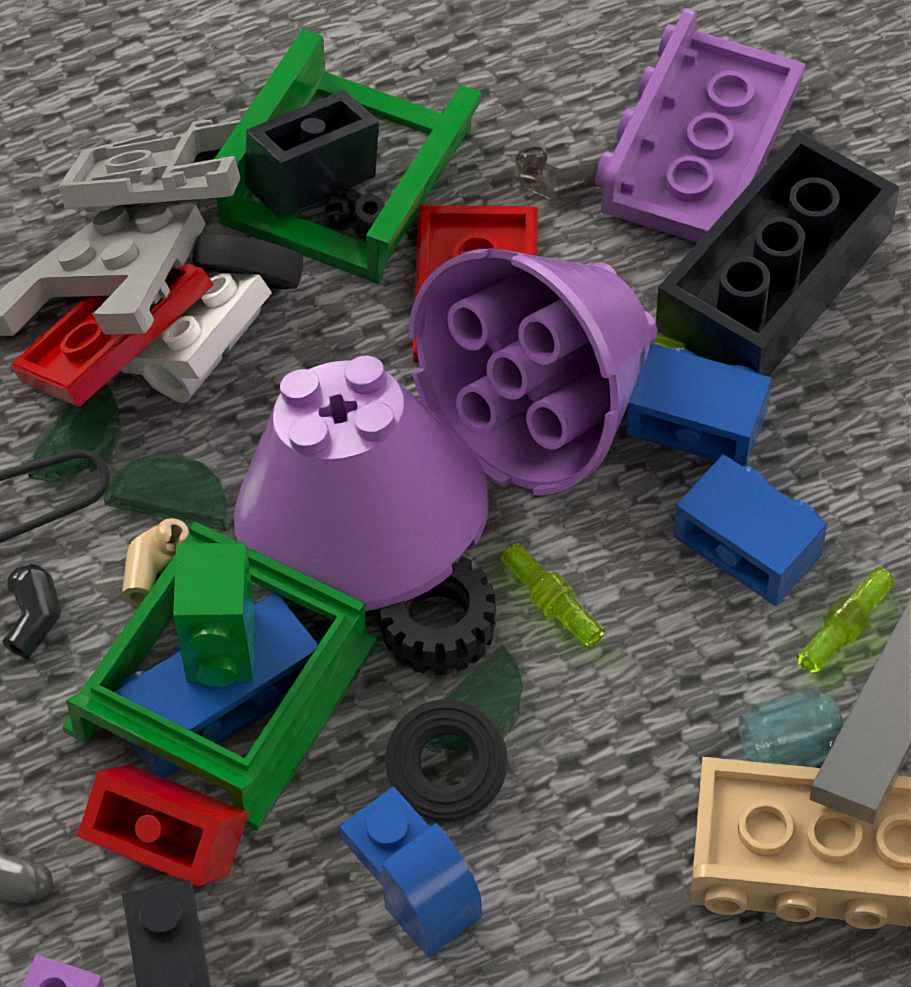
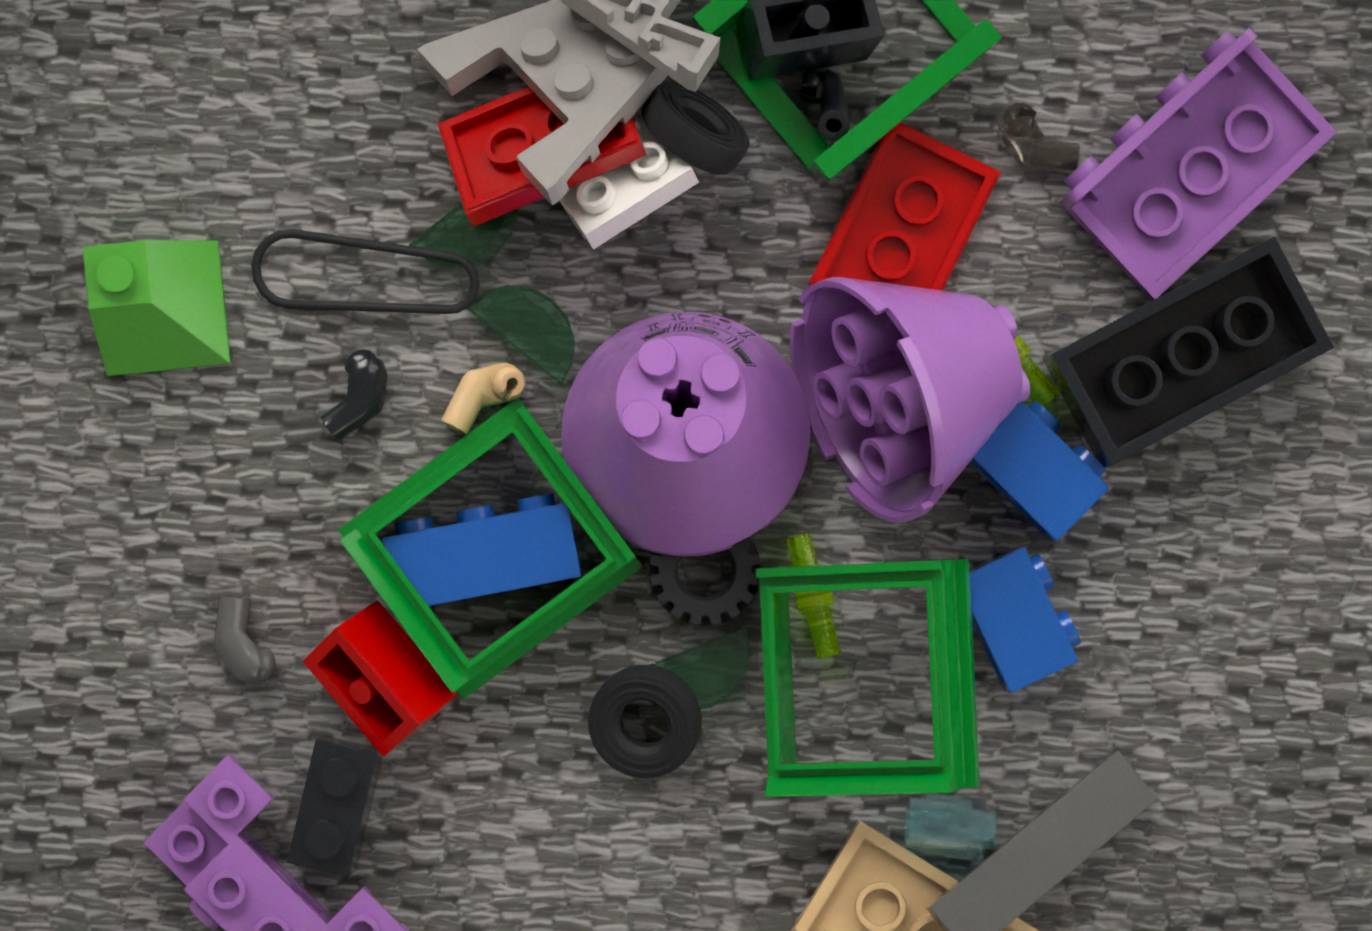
camera: 20 degrees right, 30 degrees up
(214, 612) = (490, 538): green brick -> none
(419, 868) = (566, 813): blue brick -> none
(682, 686) = (951, 680): none -> green piece
(846, 620) = (1054, 740): clear neon green bar -> none

